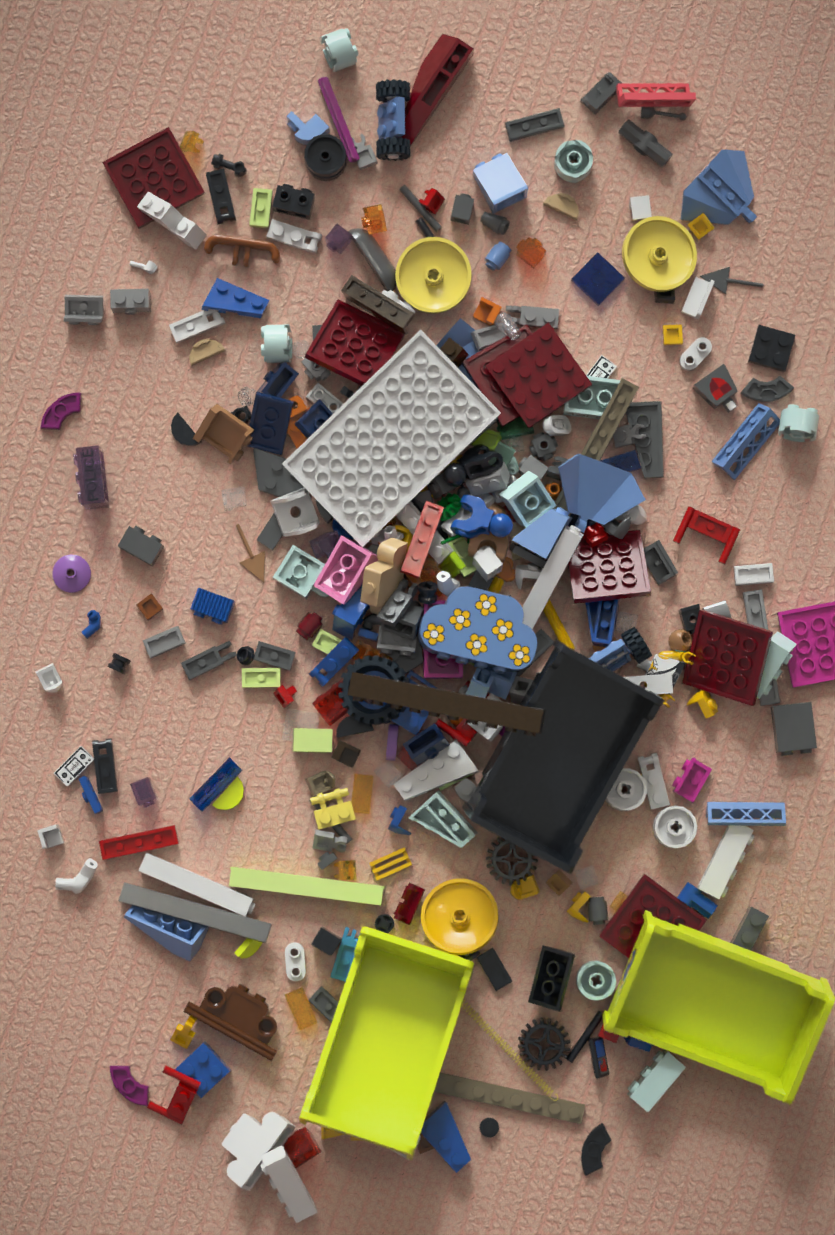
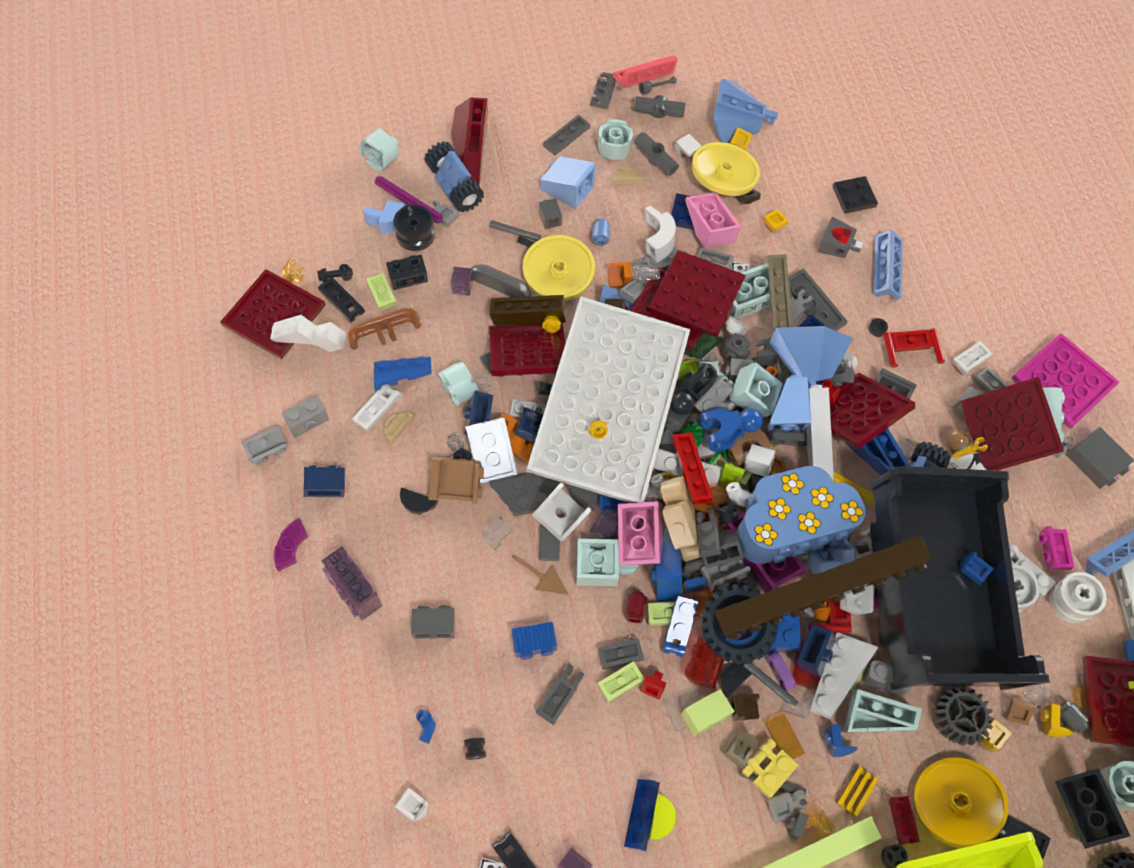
camera: 35 degrees left, 20 degrees down
(81, 573) = (385, 696): medium lavender dish -> none
(116, 372) = (324, 481): none -> dark blue brick
(149, 606) = (473, 676): dark orange tile -> none
(150, 267) = (309, 384): white hand -> none
(164, 642) = (507, 702): light grey plate -> none
(245, 655) = (593, 669): black plate -> none
(293, 236) = (424, 299): white plate -> none
(312, 372) = (505, 386): light grey brick -> none
(360, 464) = (598, 434): none -> yellow plate
(374, 219) = (483, 251): clear orange brick -> none
(377, 749) = (770, 684): none -> dark grey bar
(390, 331) = (551, 324): none -> yellow plate
(432, 201) = (522, 219): red tile -> none
(495, 222) = (583, 211): dark grey cone -> none
(526, 571) = (796, 451): white plate -> none
(531, 251) = (624, 216): clear orange brick -> none
(547, 302) = (663, 242): none -> white arch
(596, 356) = (715, 256): none -> light grey tile
(597, 756) = (975, 567): none -> blue plate
(604, 186) = (656, 154): none -> dark grey piece
(607, 302) = (712, 220): none -> bright pink slope
(686, 613) = (951, 417): black brick -> none
(692, 496) = (878, 327): none -> black tile
(695, 353) = (802, 222): white plate -> none
(697, 298) = (776, 187): white panel -> none
(706, 703) = (1021, 478): yellow plate -> none
(721, 279) = (781, 169): dark grey piece -> none
(767, 391) = (874, 225): dark grey tile -> none
(798, 423) = (920, 229): light aqua brick -> none

